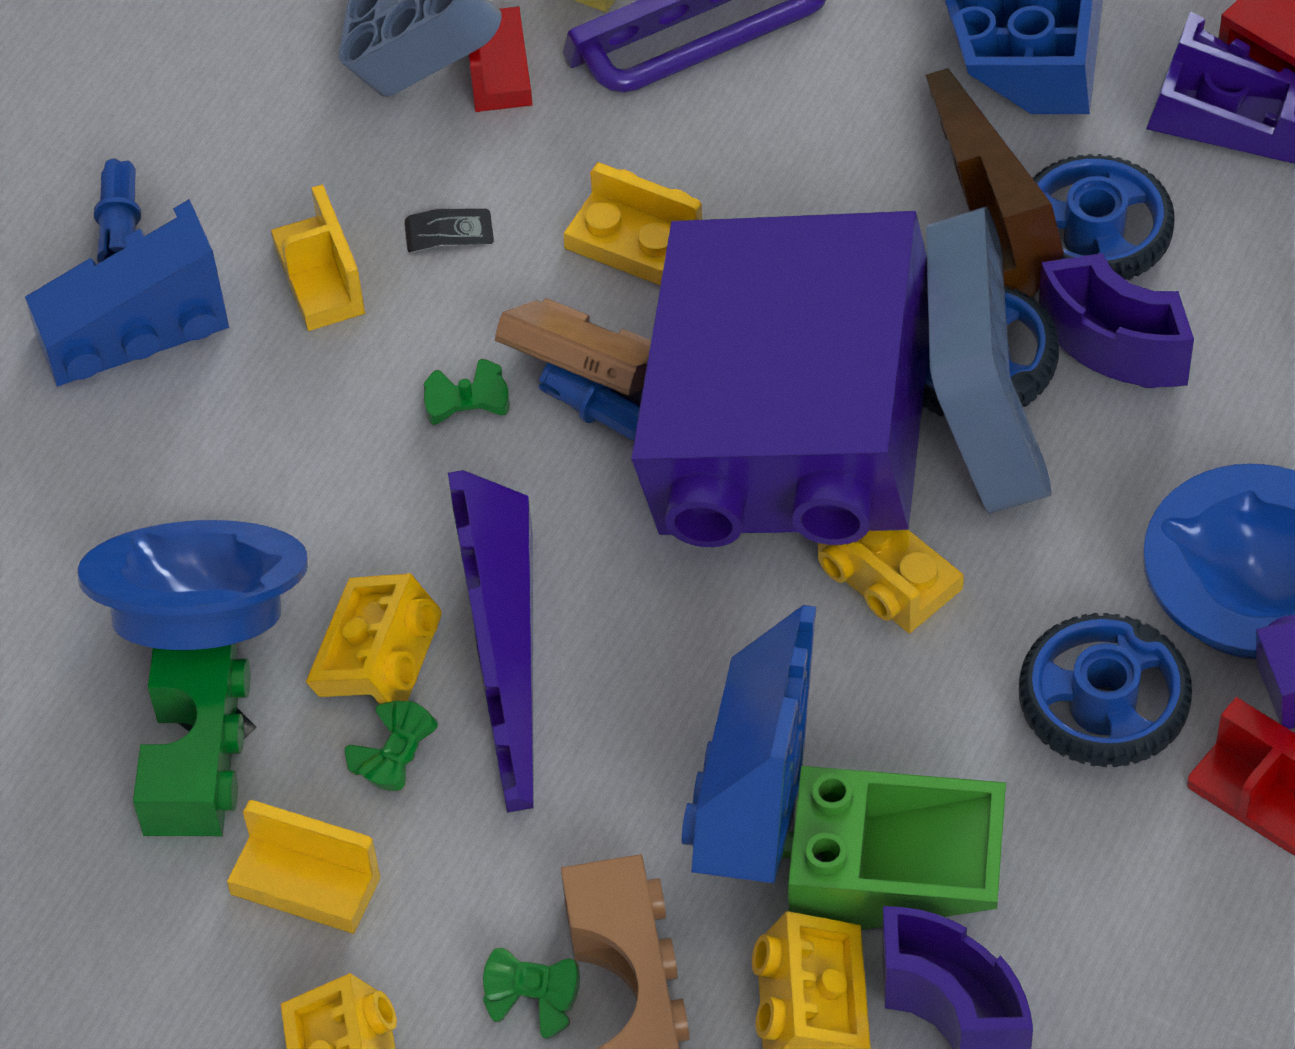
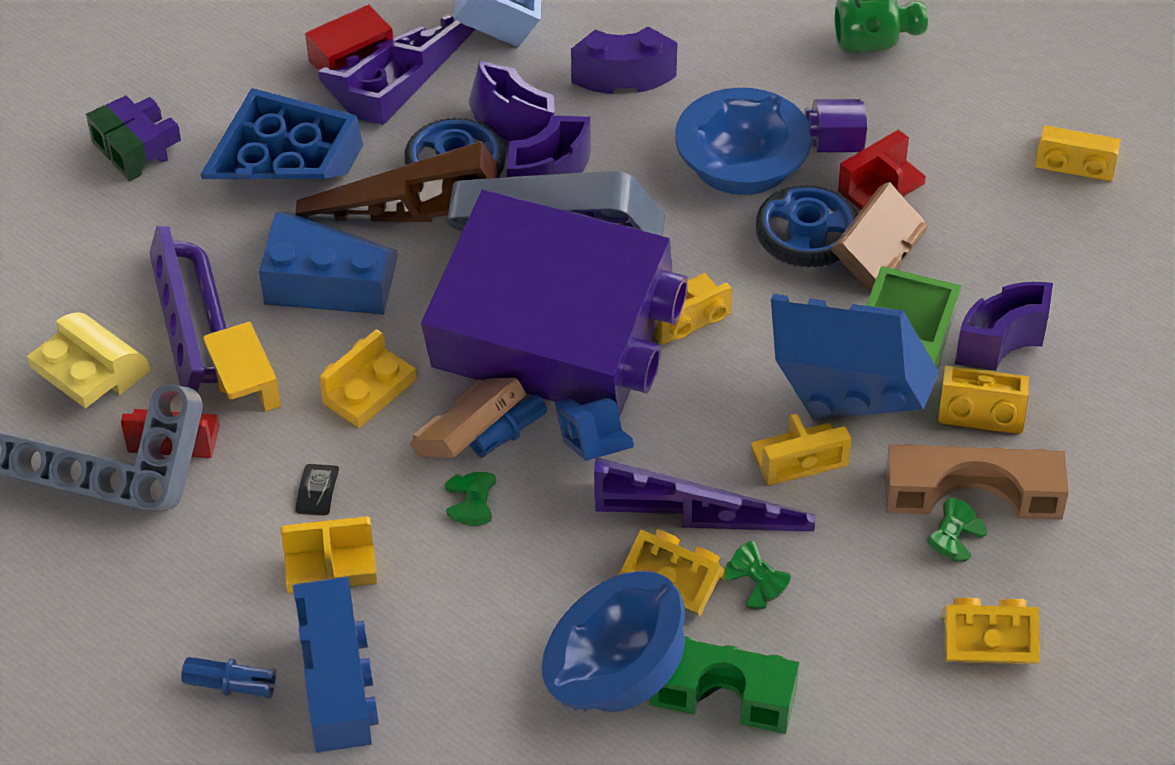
camera: 80 degrees left, 5 degrees down
(305, 867) = (844, 635): yellow panel -> none
(577, 481) = (592, 428): none -> blue panel
(611, 89) = (242, 365): none -> yellow panel
(638, 760) = (801, 451): none -> yellow panel
(839, 122) = (324, 268): none -> blue wedge
(1106, 792) = (880, 235): none -> piece
(1215, 246) = (509, 103): none -> dark purple brick

